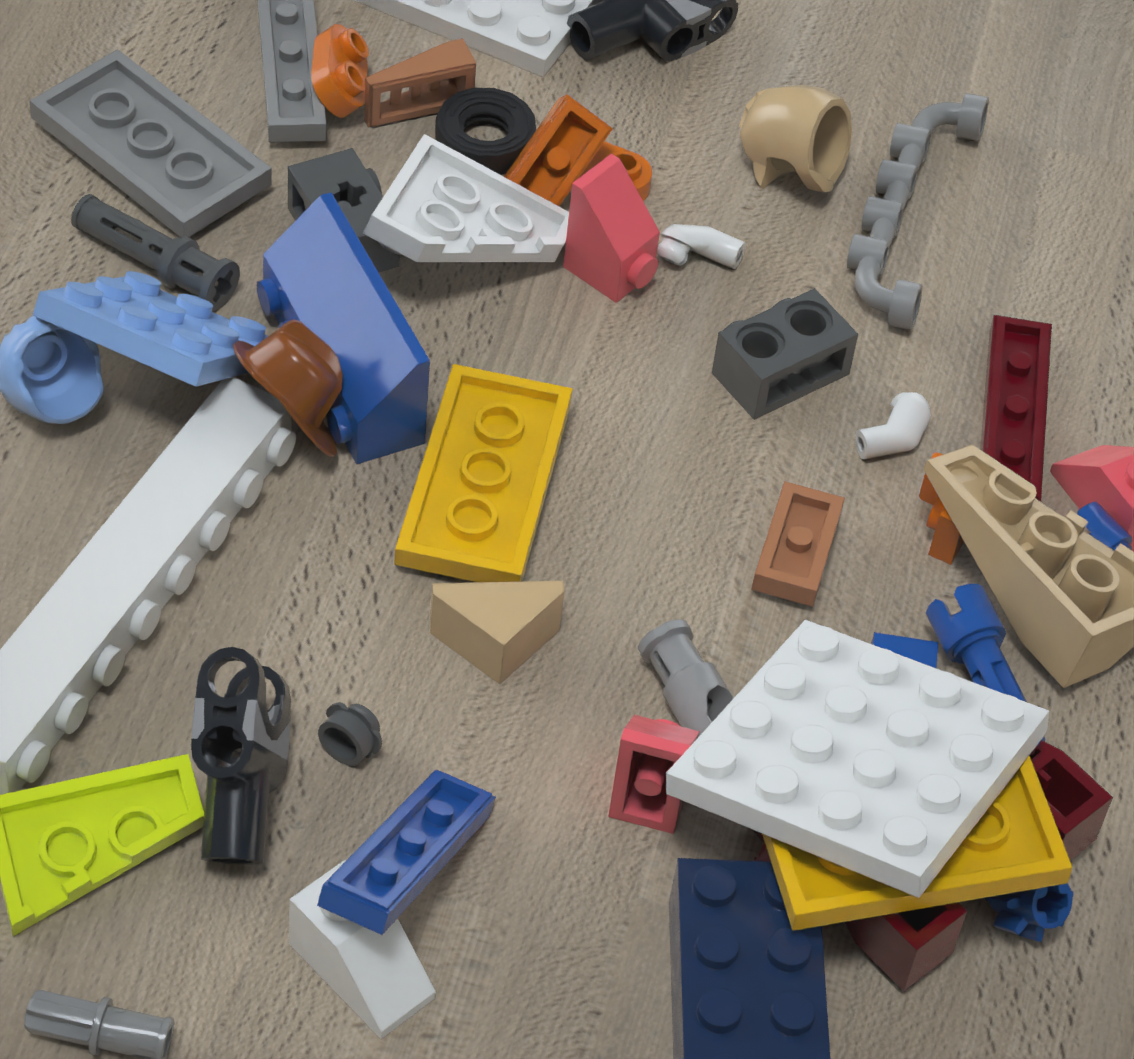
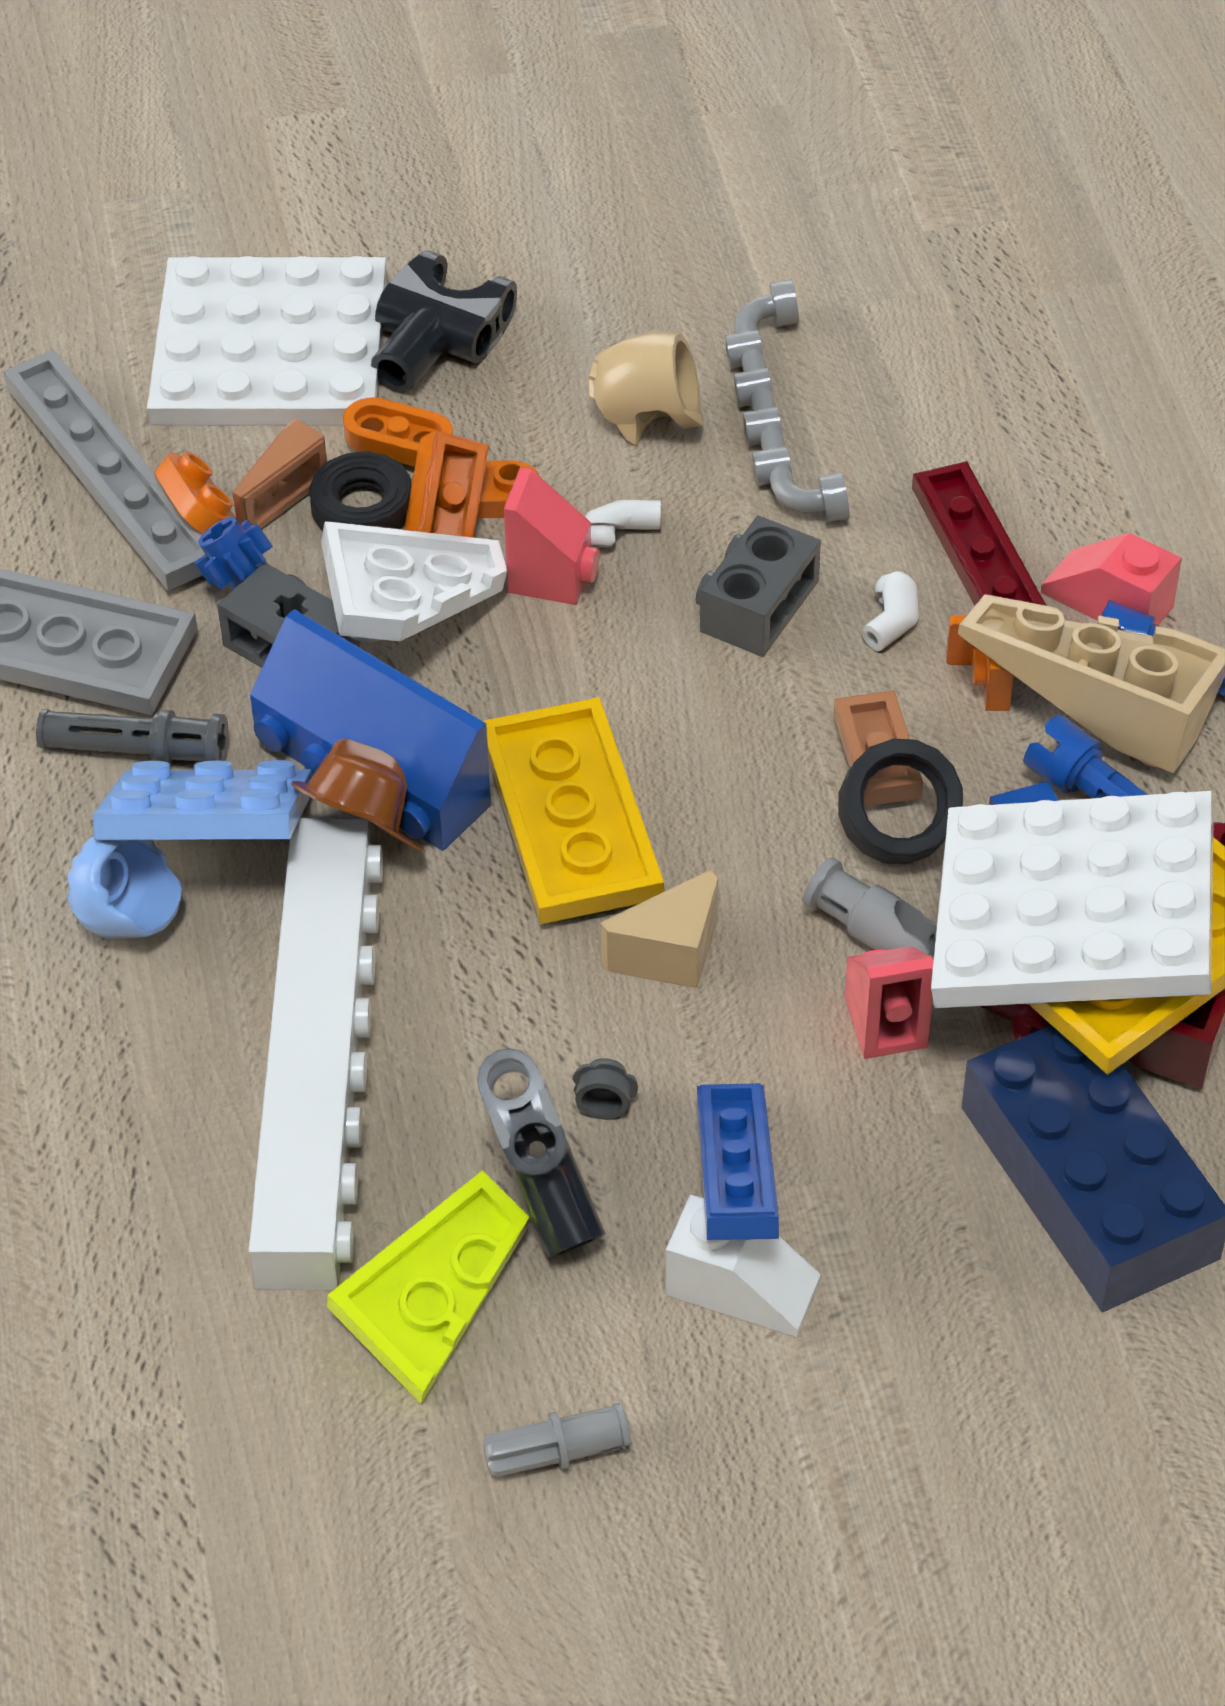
camera: 20 degrees left, 0 degrees up
(331, 127) = (231, 552): none -> blue gear
(543, 78) = (390, 427): none -> orange plate
(762, 551) = (851, 800): none -> black tyre

